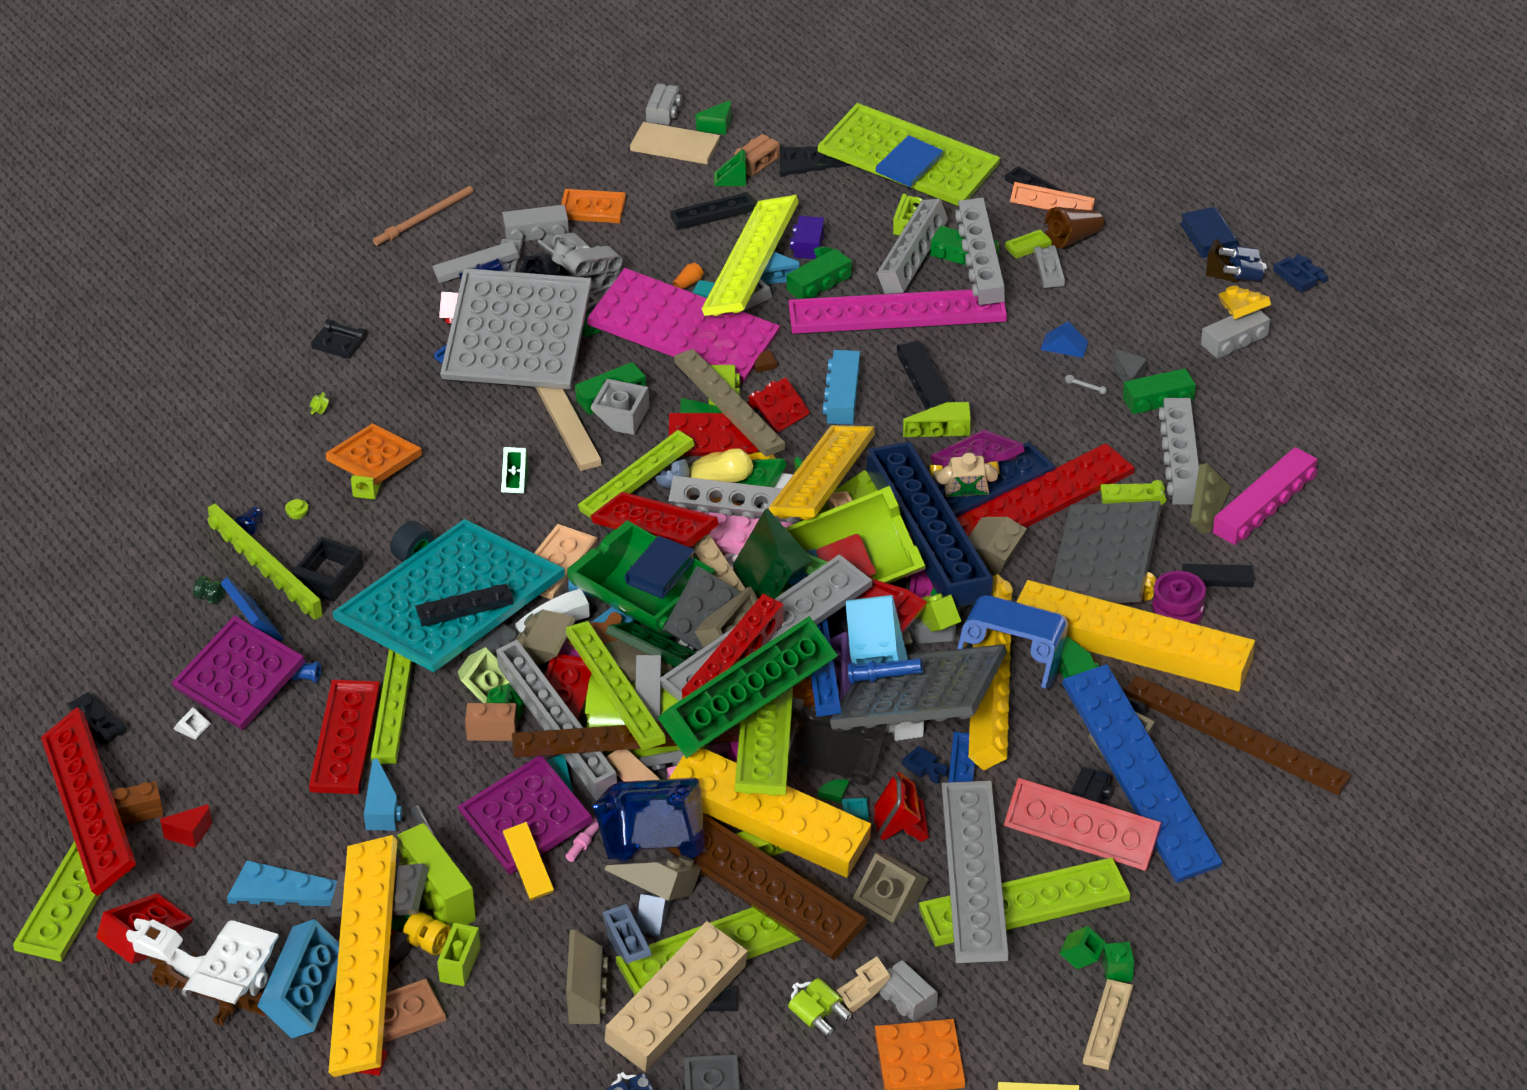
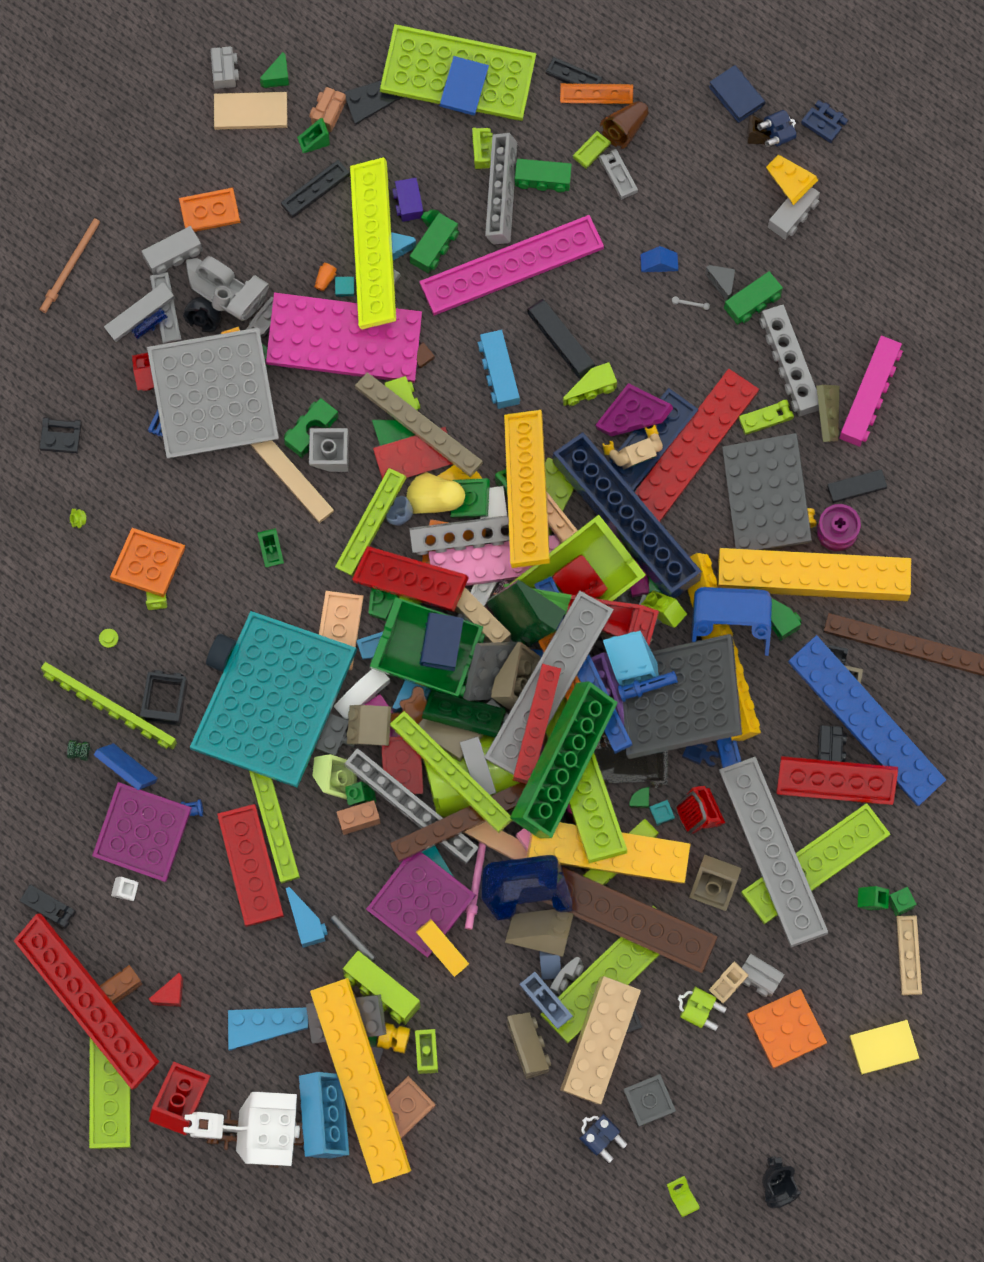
camera: 20 degrees left, 30 degrees up
(249, 520) = (76, 666): clear blue cone -> none
(464, 604) = (294, 713): black plate -> none
(667, 926) = (570, 971): none -> light grey slope
(779, 404) = (453, 405): red bracket -> none
(980, 251) = (547, 143): light grey brick -> none
(996, 541) = (679, 510): dark tan slope -> none

